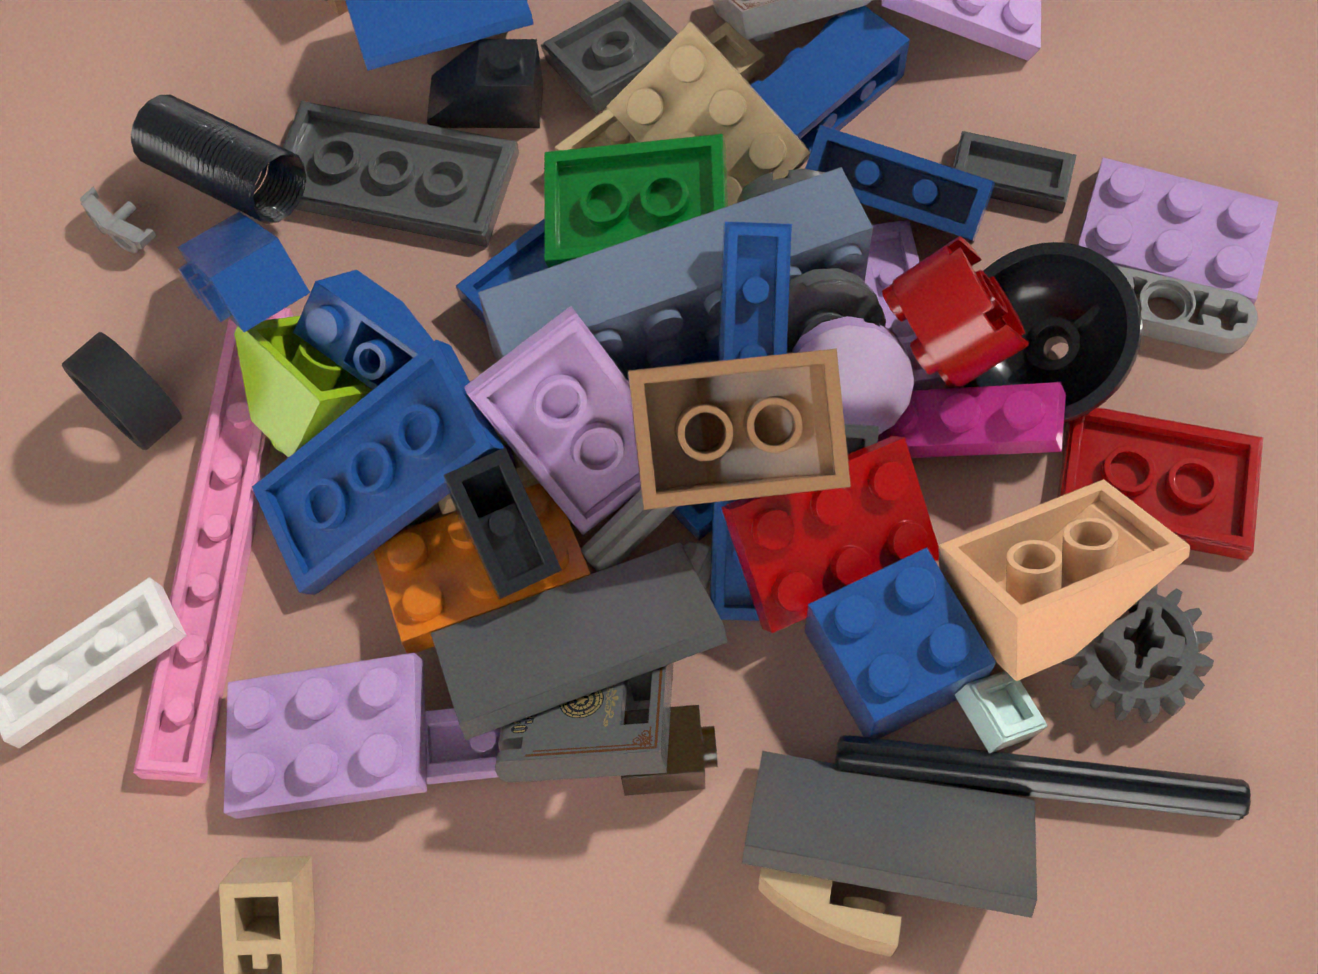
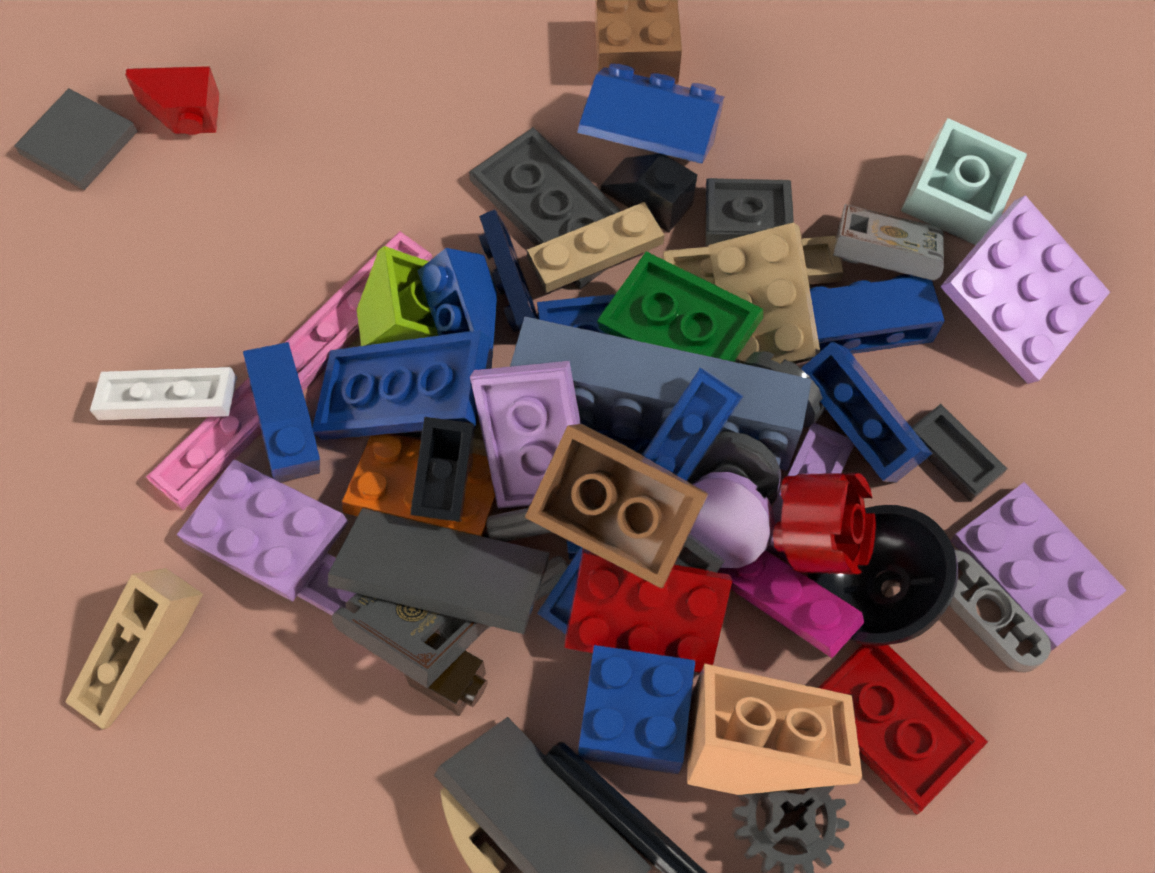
camera: 30 degrees right, 0 degrees up
(122, 232) = (368, 137): light grey piece -> none
(122, 390) = (295, 244): black tyre -> none
(218, 158) = (453, 135): black piece -> none
(241, 272) = (408, 215): blue brick -> none
(251, 590) = (282, 412): none -> blue slope
(402, 277) = (508, 274): none -> dark blue plate
(475, 188) = (595, 247): none -> tan plate
(1000, 711) = (671, 798): light aqua tile -> none

